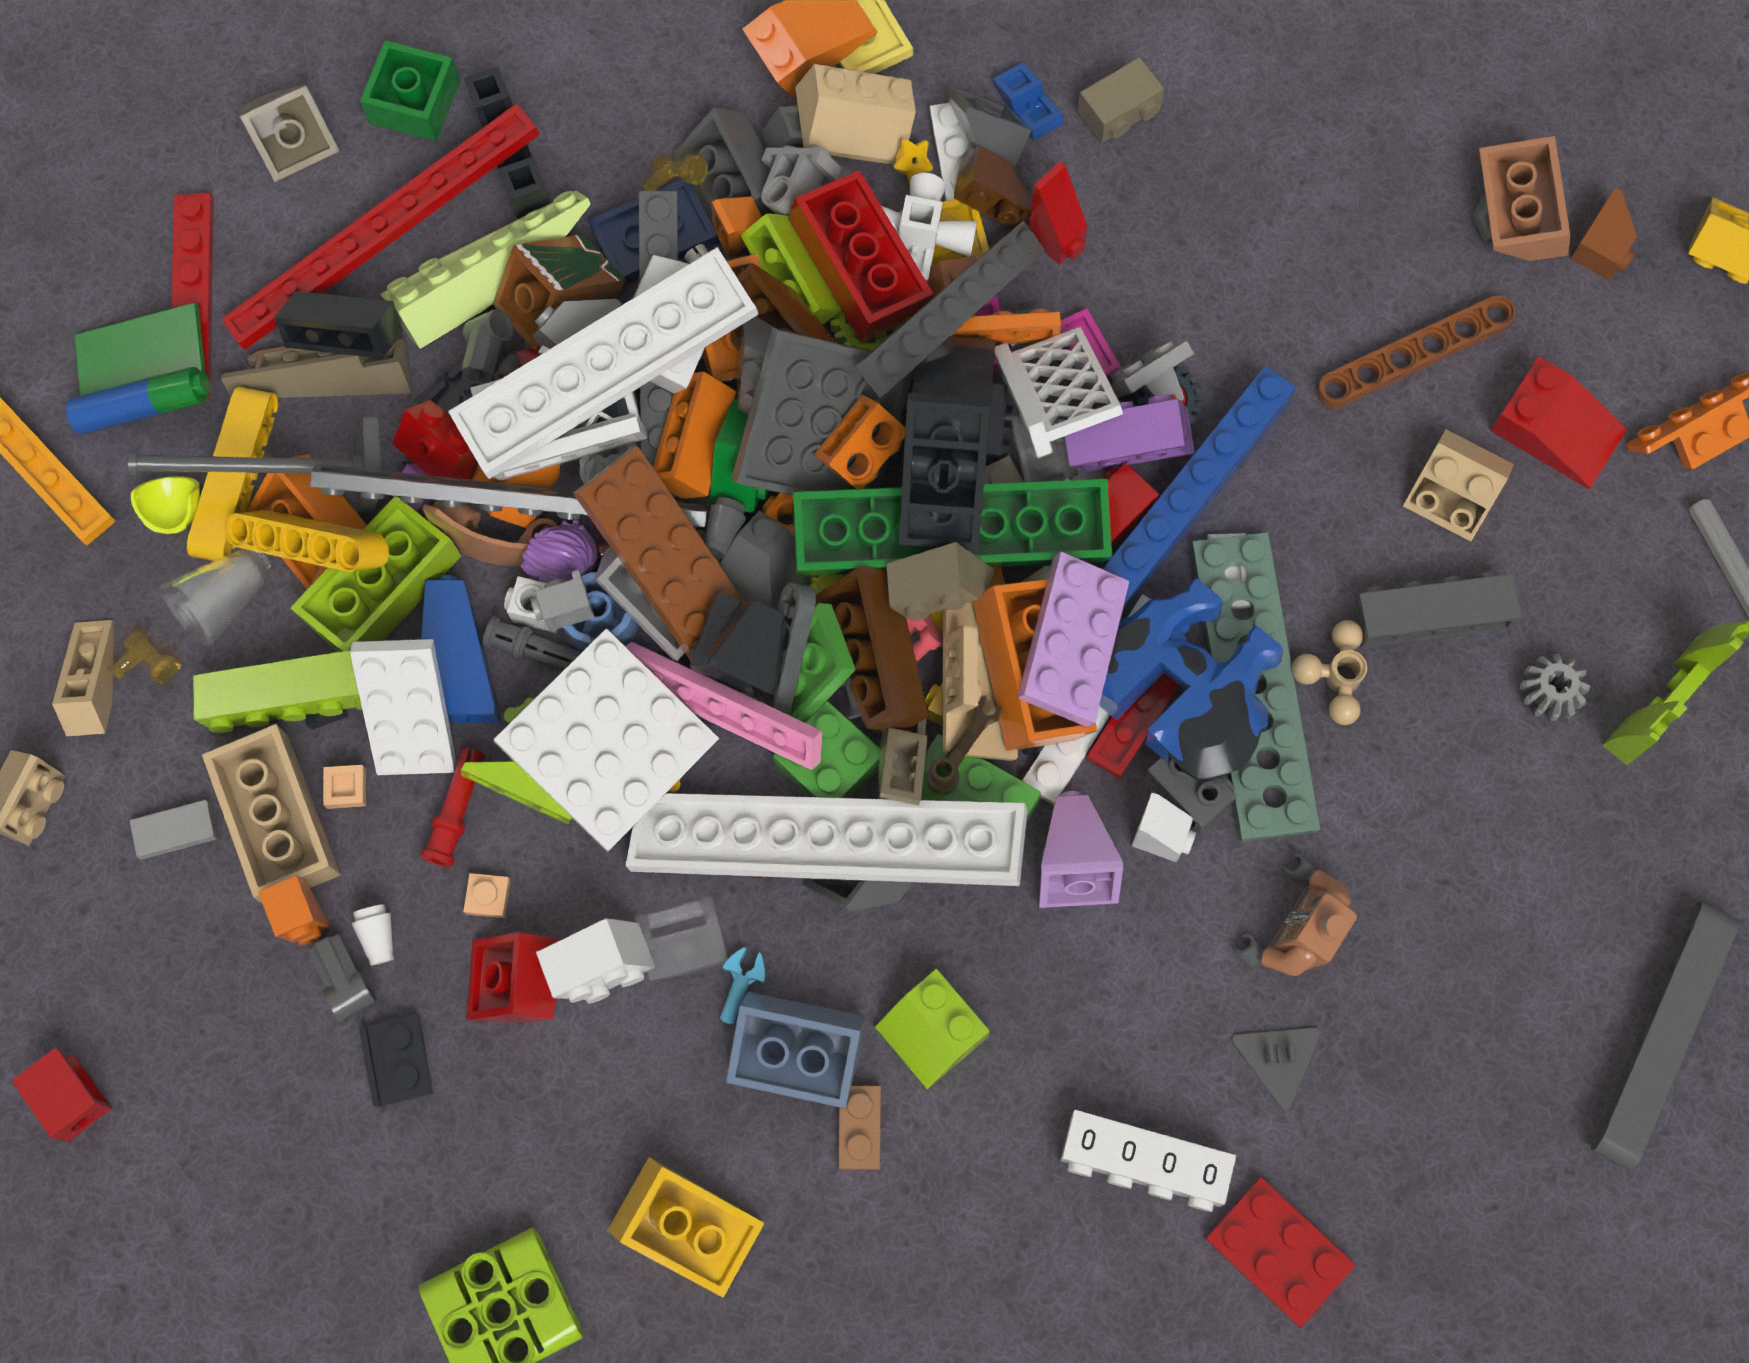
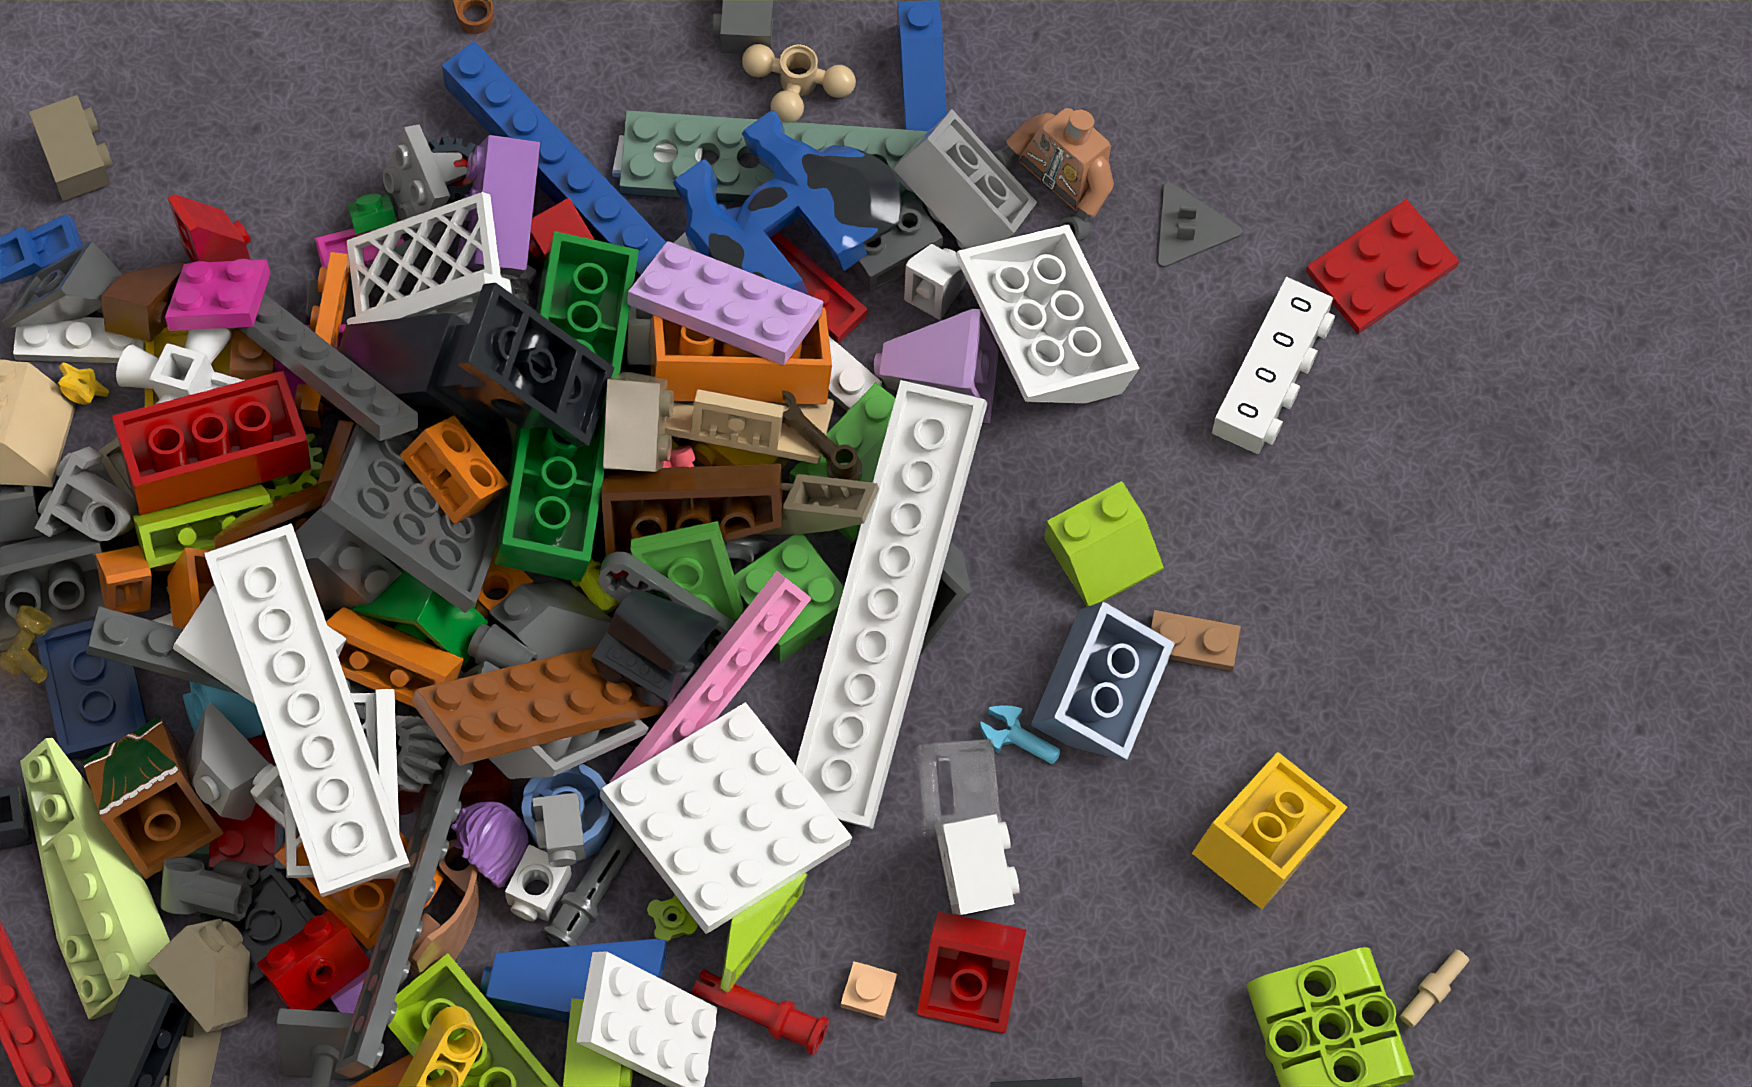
camera: 85 degrees left, 5 degrees down
(404, 361) = (207, 973): none -> dark tan slope
(998, 233) = (218, 294): none -> dark pink plate
(1118, 346) = (371, 213): none -> green plate
(1137, 933) = (1049, 317): none -> white slope
(1259, 839) = (964, 184): none -> light grey slope
(1378, 781) = (921, 63): none -> blue slope

